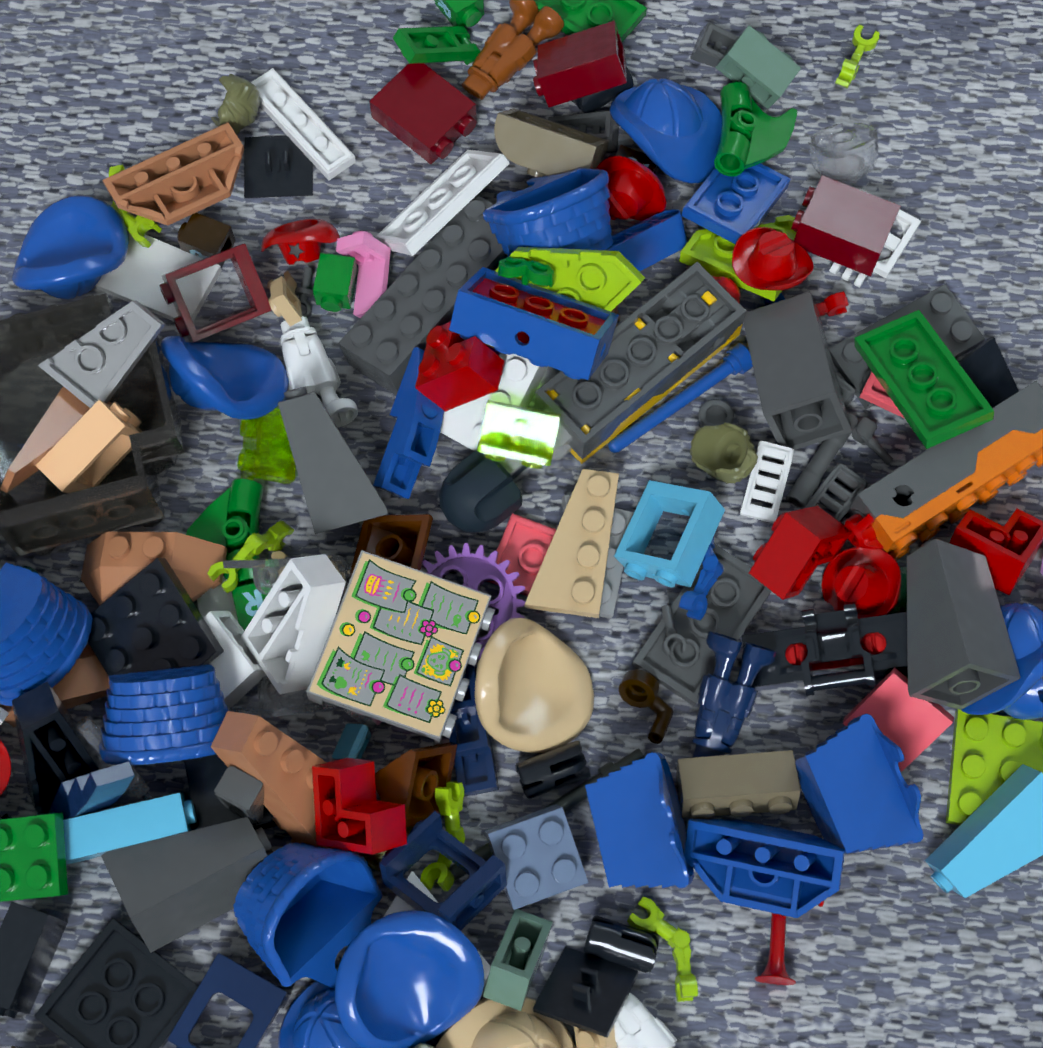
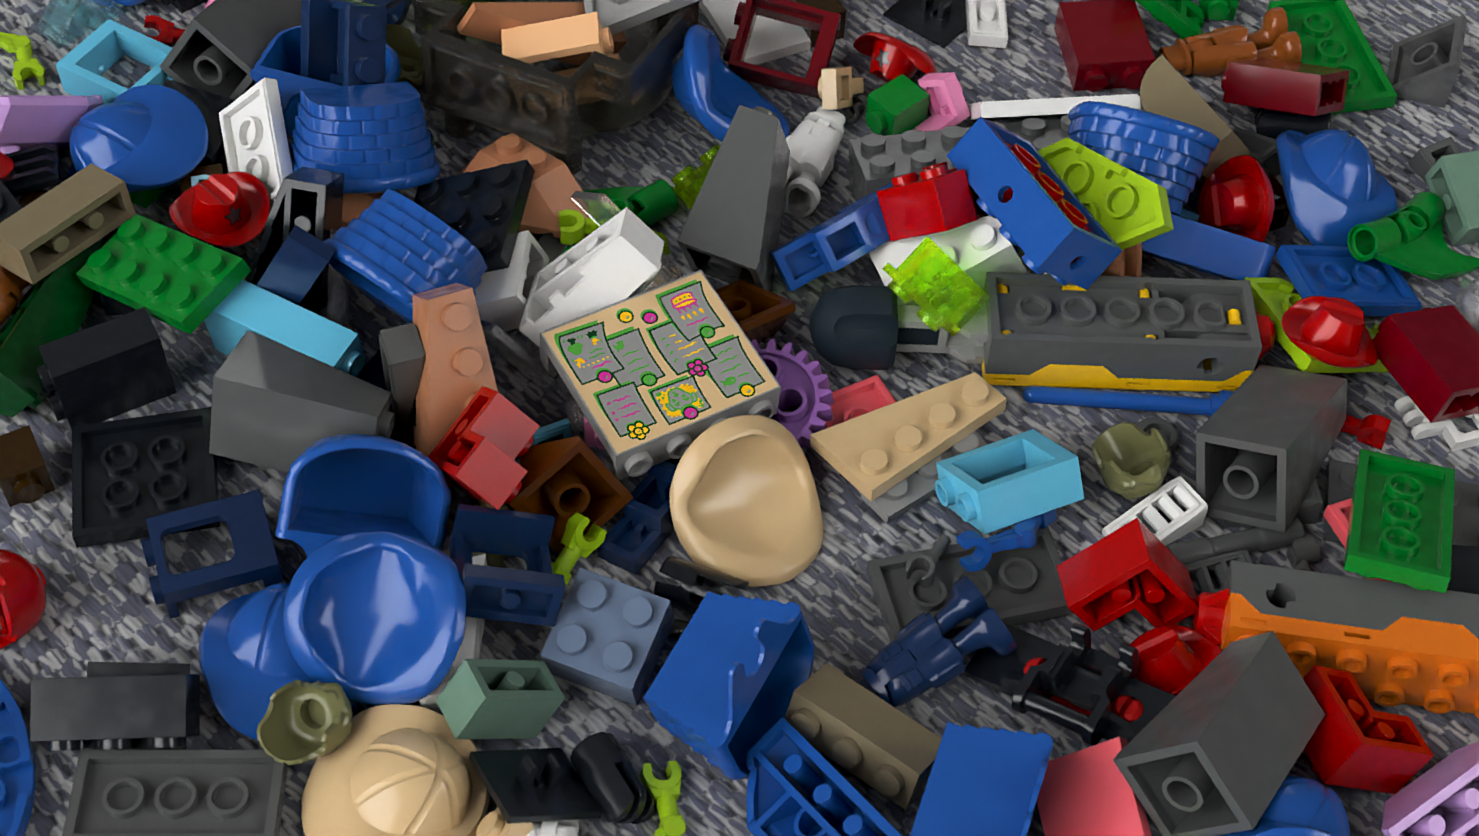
camera: 40 degrees right, 20 degrees down
(529, 270) = (1068, 160): green piece -> none
(640, 691) = (850, 591): dark brown plate -> none

